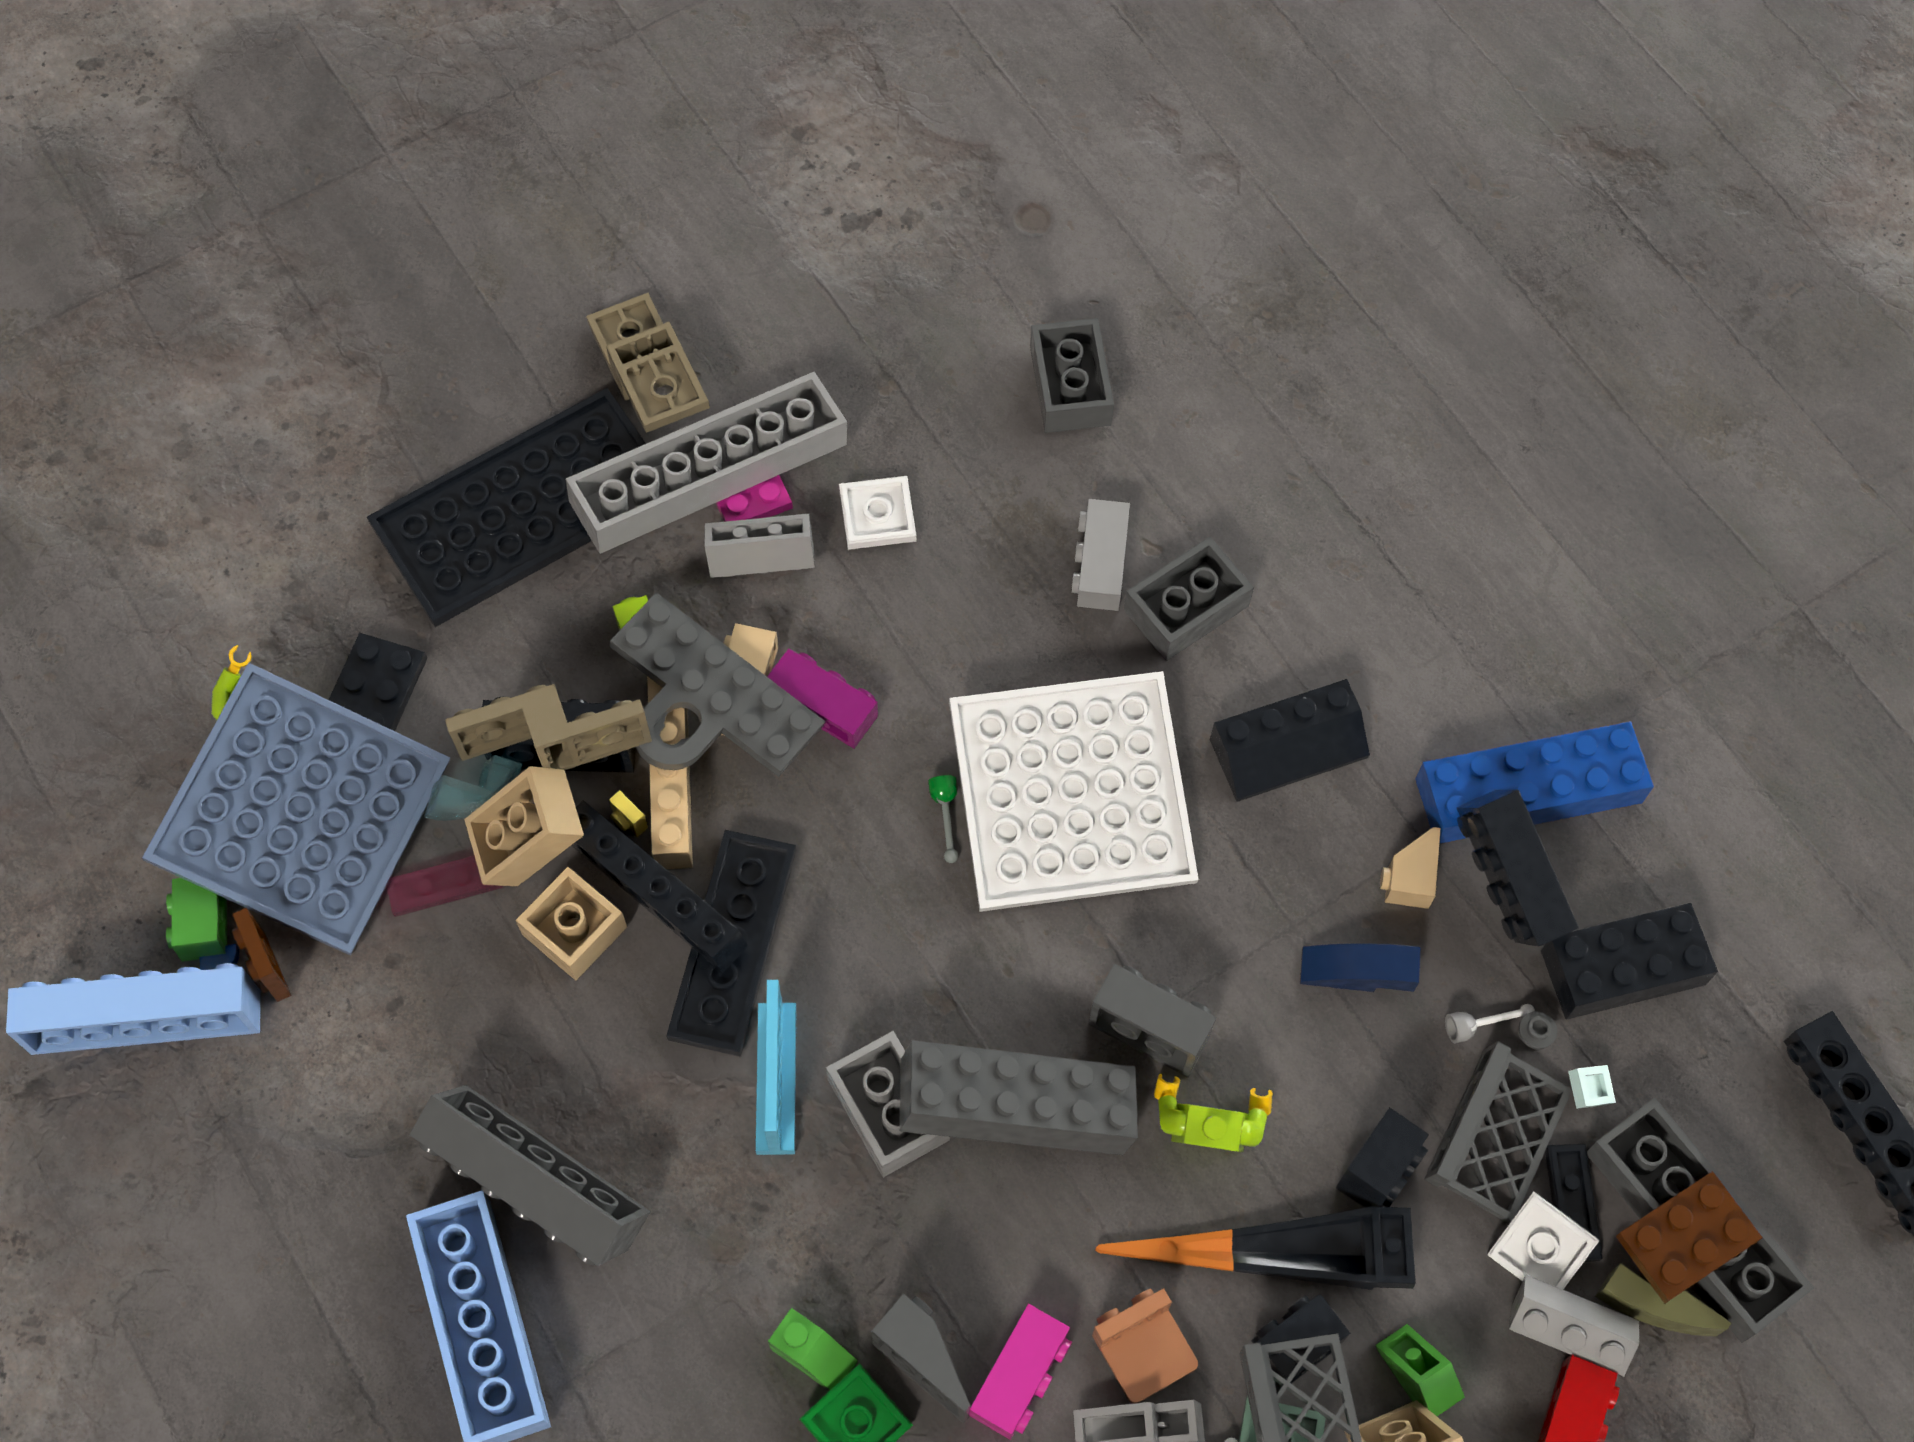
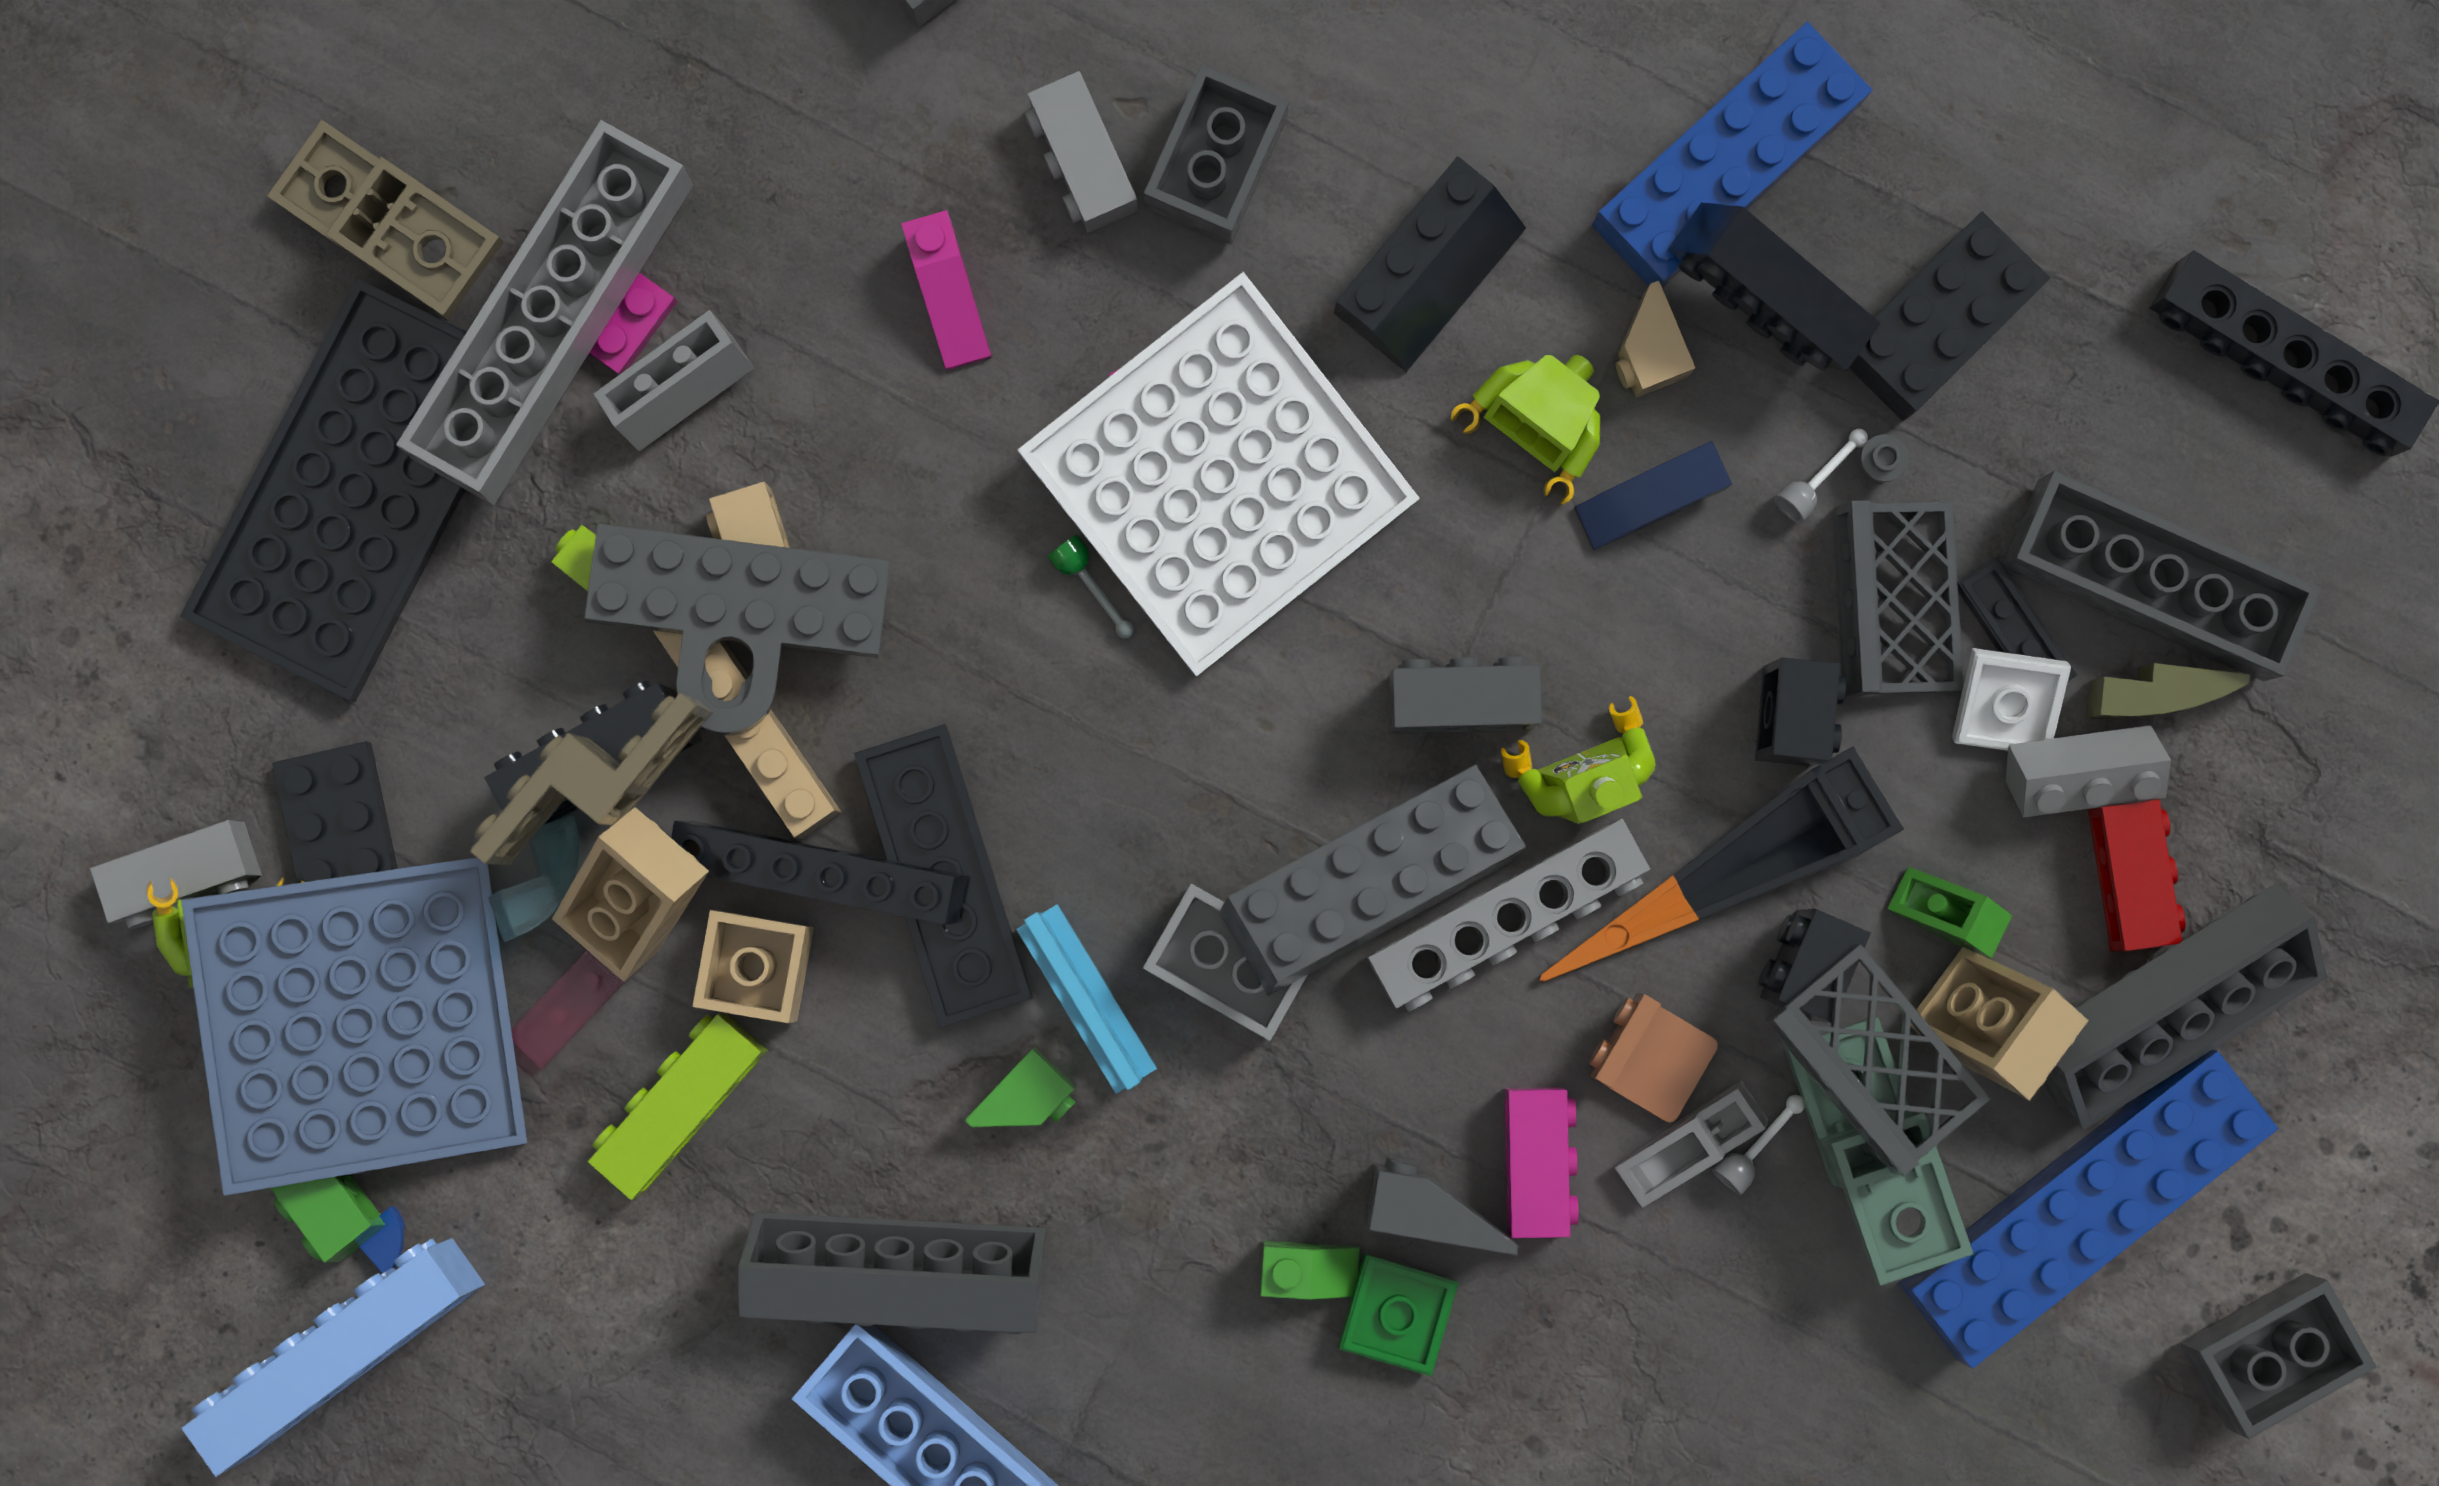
camera: 30 degrees left, 20 degrees up
(262, 961) = (441, 1216): reddish brown plate -> none
(282, 658) = (198, 862): none -> light grey brick
(462, 986) = (677, 1105): none -> lime brick
(627, 815) = (731, 801): light yellow plate -> none
(692, 1114) = (1026, 1095): none -> bright green slope
(844, 709) = (865, 524): magenta brick -> none
(877, 512) = (784, 251): white plate -> none
(965, 586) = (946, 289): none -> dark pink slope
(1196, 1178) = (1610, 845): none -> light grey brick
(1315, 870) = (1545, 412): none -> lime torso
(1591, 1086) = (1973, 488): light aqua plate -> none
(1688, 1237) = (2167, 611): reddish brown plate -> none

